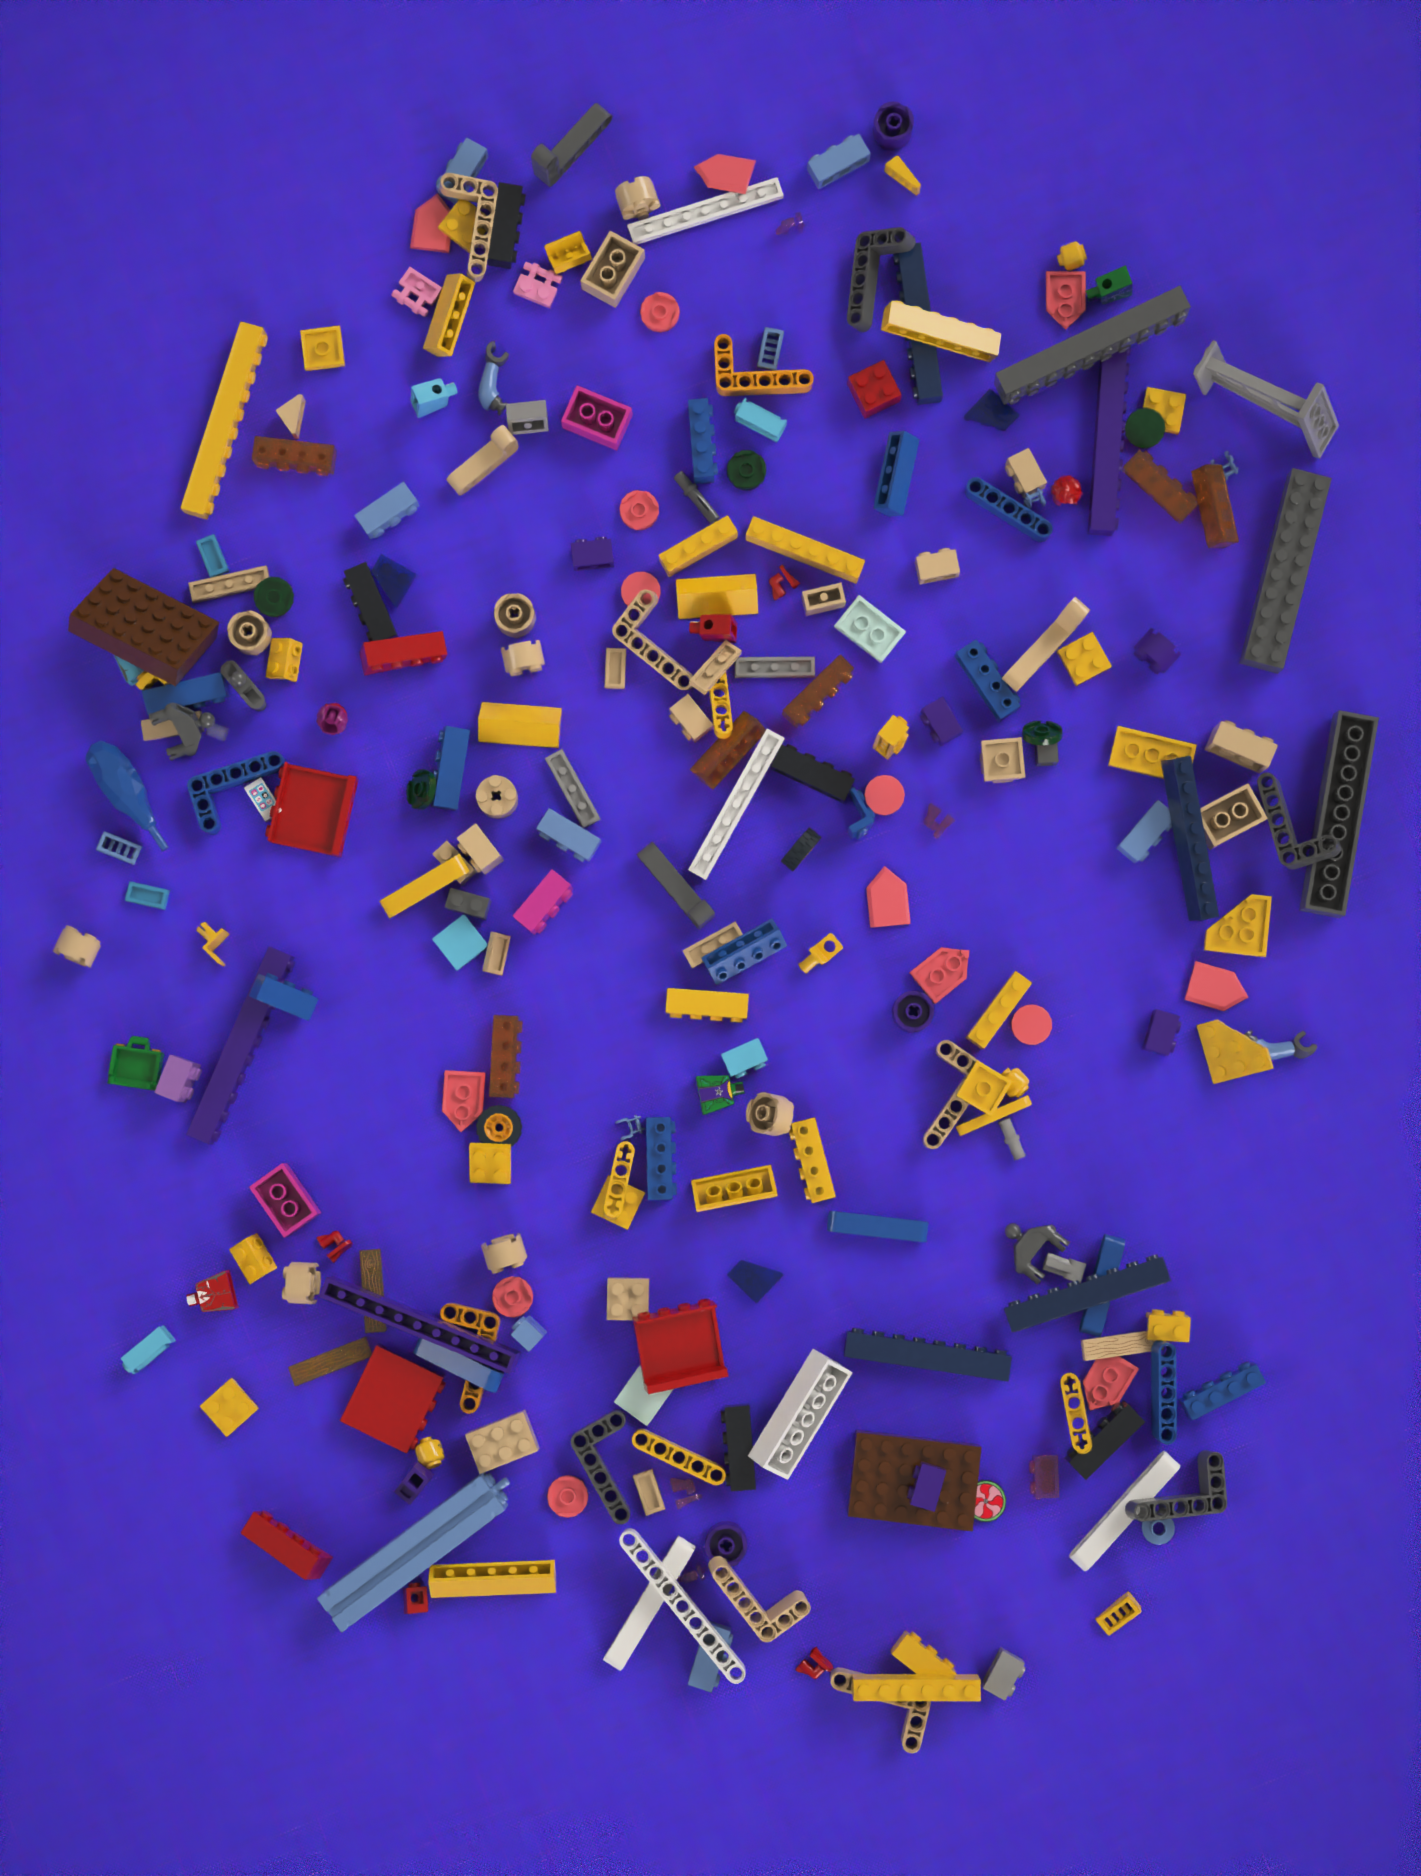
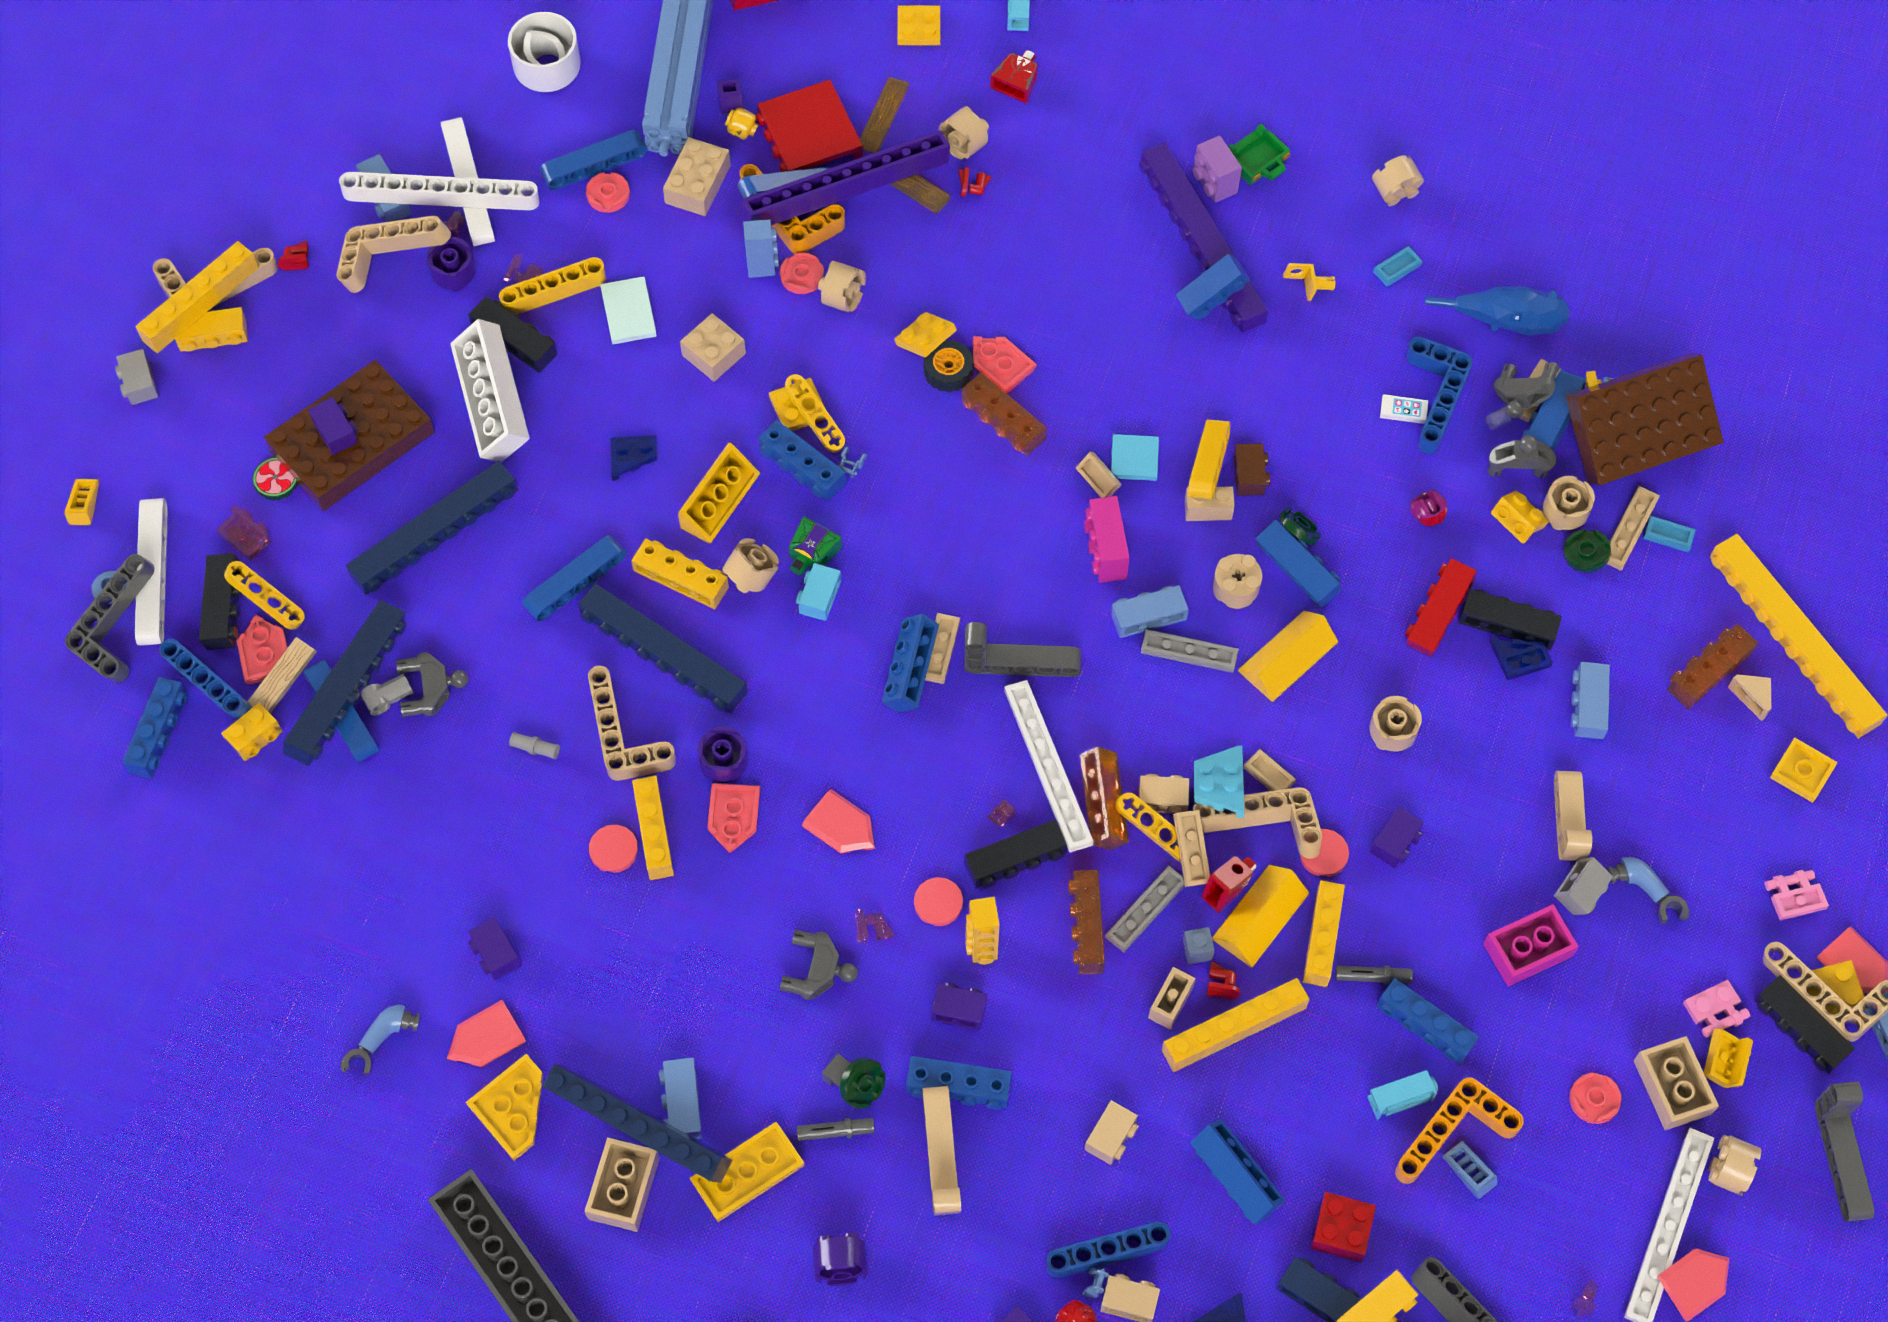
camera: 130 degrees right, 20 degrees down
(100, 847) = (1470, 260): medium blue slope -> none
(253, 1258) = (1018, 122): yellow bracket -> none
(285, 1200) = (1042, 171): dark pink brick -> none
(313, 808) = (1358, 438): red panel -> none
(402, 858) = (1250, 469): none -> reddish brown brick
(421, 1604) = (638, 28): red brick -> none
(431, 396) = (1678, 812): medium azure torso -> none
(449, 315) = (1747, 898): yellow brick -> none
(468, 903) = (1162, 486): dark grey brick -> none
(477, 845) = (1202, 527): tan brick -> none
(492, 1578) = (601, 91): yellow brick -> none
(494, 1672) = (542, 35): none -> white piece
(523, 657) = (1347, 697): tan brick -> none
(552, 1530) = (593, 159): none -> blue beam
(599, 1465) = (584, 219): dark grey beam -> none
(639, 510) = (1406, 916): coral tile -> none
(649, 1492) = (549, 248): tan tile -> none
(652, 688) = (1220, 781): none -> medium azure wing
(679, 1346) = (634, 348): red panel -> none
(707, 1003) = (894, 600): yellow brick -> none
(746, 470) = (1363, 1044): dark green tile -> none
(774, 613) = (1198, 945): none -> sand blue brick
(793, 806) = (1002, 813): none -> clear pink piece
(801, 849) = (955, 780): black wheel -> none
(819, 954) = (848, 725): yellow bracket -> none
(862, 826) = (938, 861): blue bracket -> none
(869, 629) = (1106, 1023): light aqua tile -> none
(874, 1121) = (662, 648): none -> dark blue brick
(984, 1088) = (598, 748): yellow plate -> none
(990, 824) = (822, 969): none -> dark grey connector
(1000, 1112) = (568, 747): yellow beam -> none
(1002, 760) = (871, 1026): tan panel -> none
(1019, 1084) = (579, 786): yellow head -> none
(1080, 727) = (835, 1129): none -> dark grey pin
(1084, 659) = (897, 1194): yellow plate -> none
(1231, 1052) = (415, 990): yellow plate -> none
(1241, 746) = (674, 1254): tan brick -> none
(1286, 829) = (559, 1225): dark grey beam -> none

